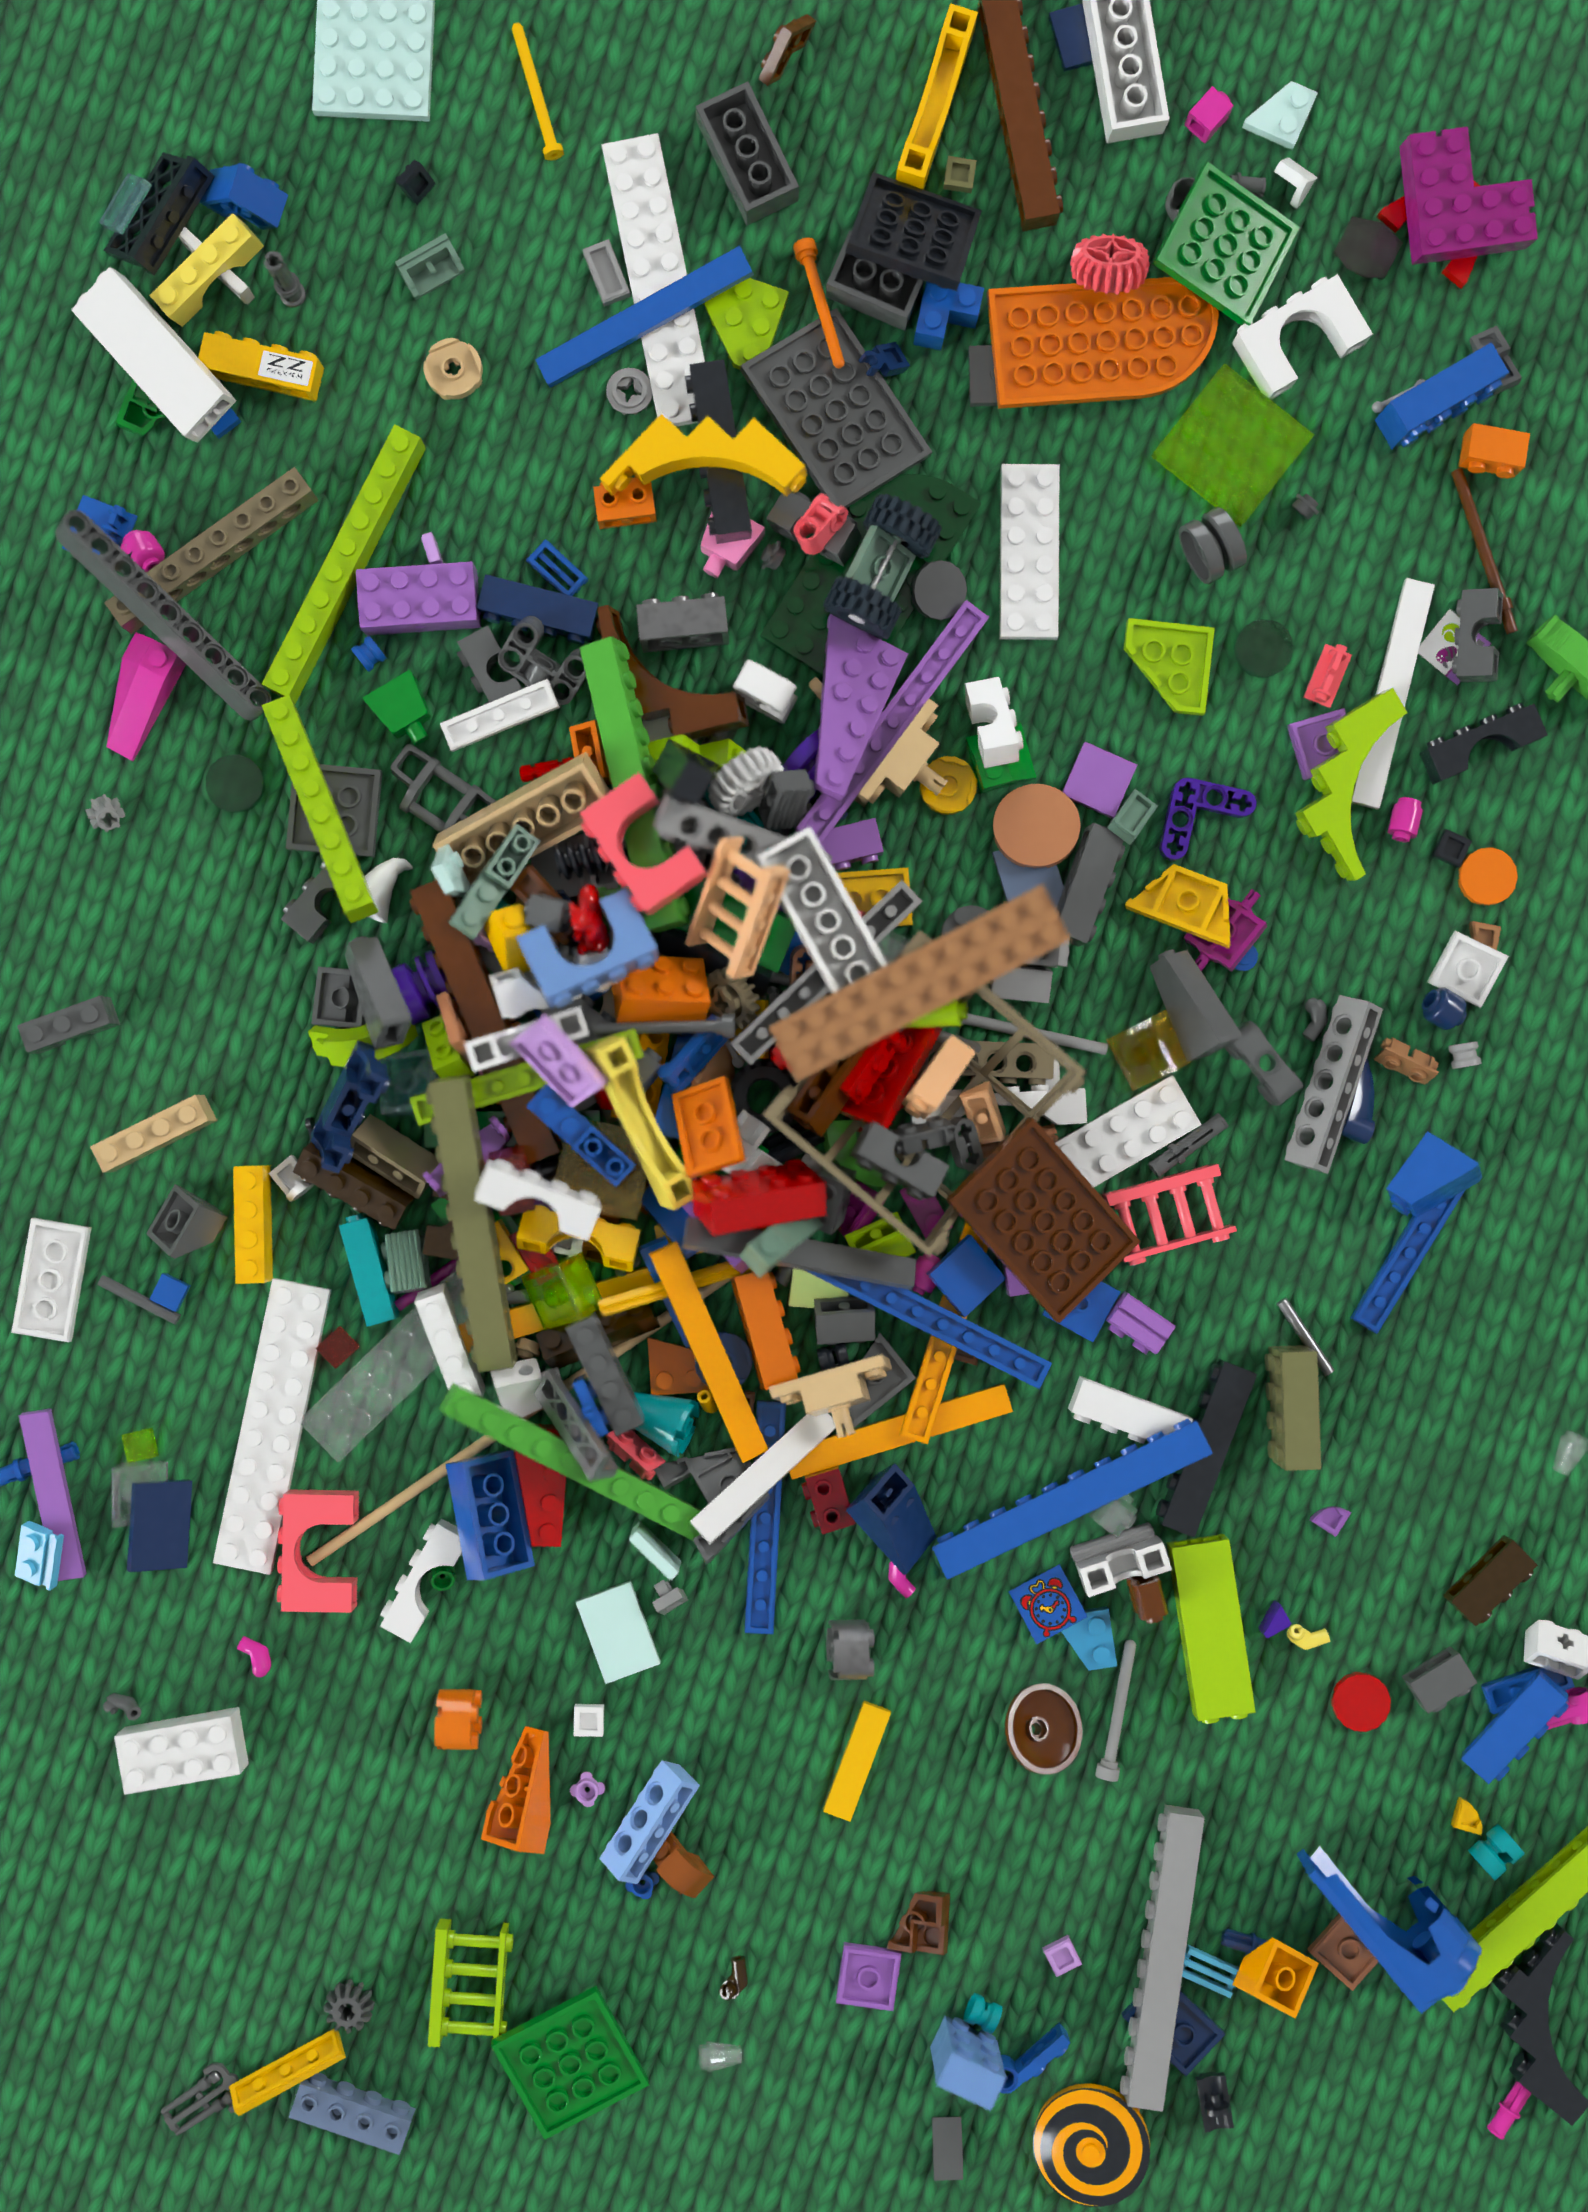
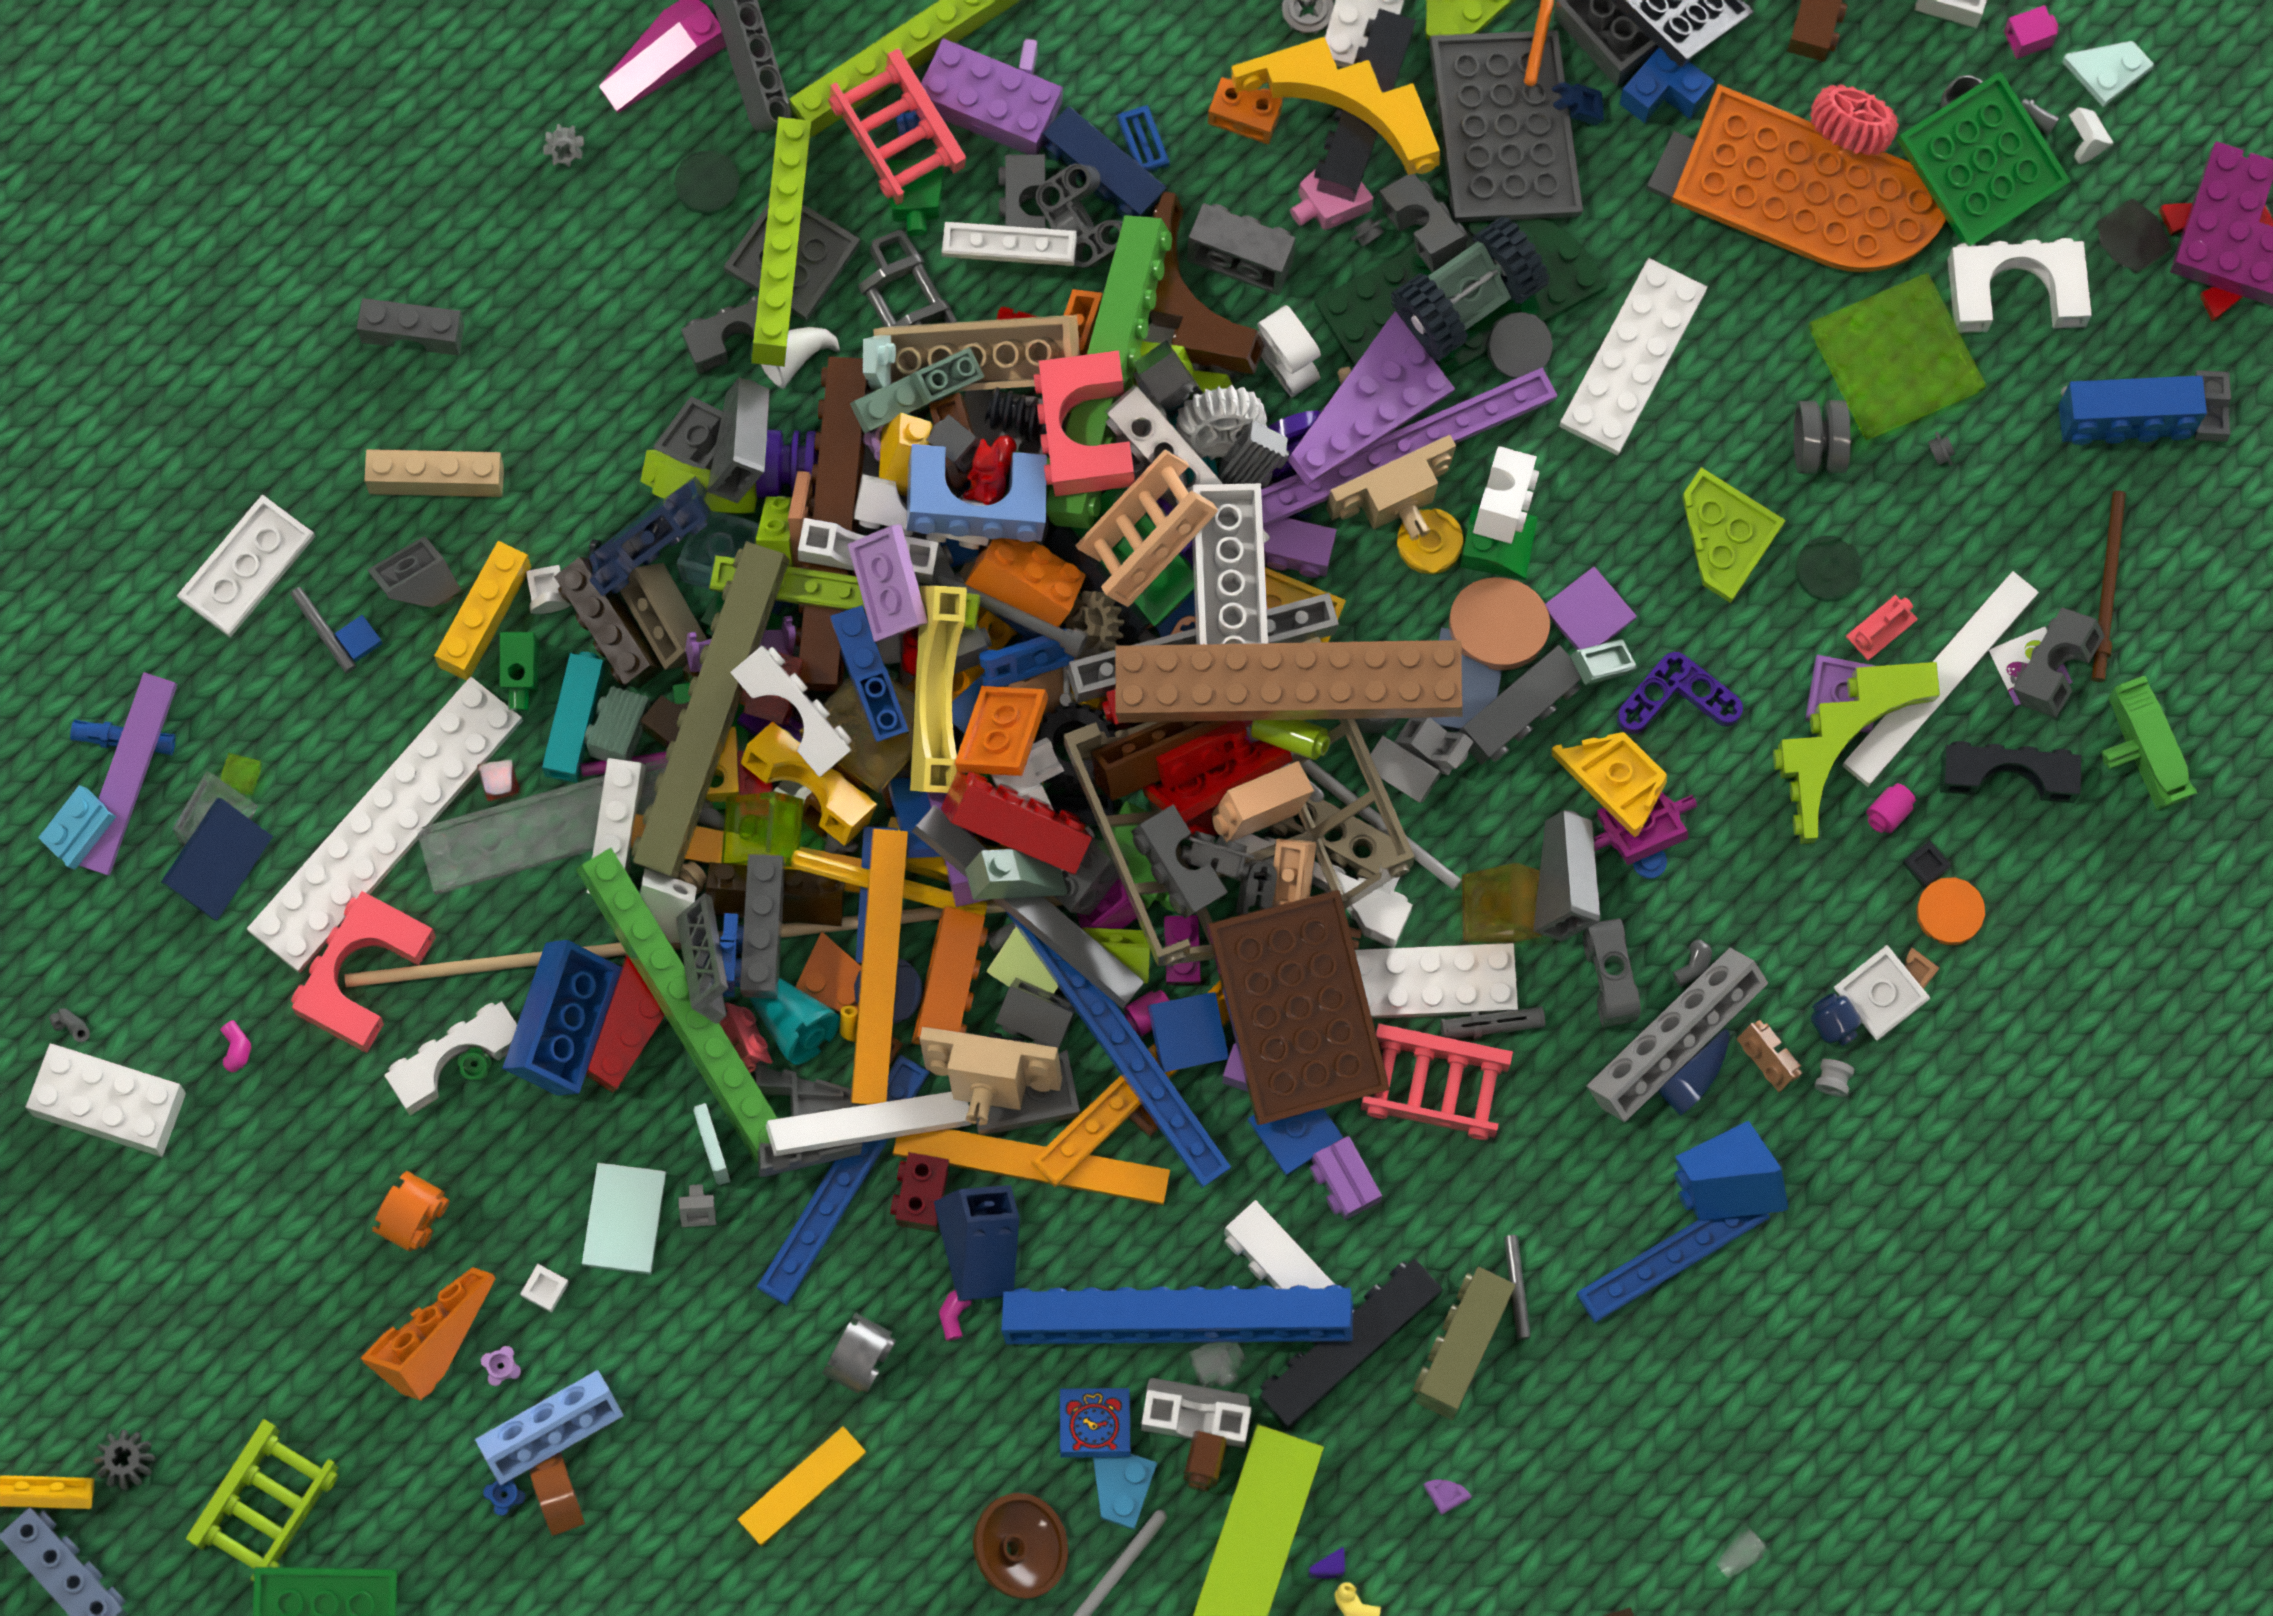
camera: 25 degrees right, 15 degrees down
(304, 1244) = (518, 653): none -> green torso
(360, 636) = (913, 99): none -> coral fence
(823, 520) = (1426, 216): coral piece -> none
(1494, 450) = (2163, 489): orange brick -> none

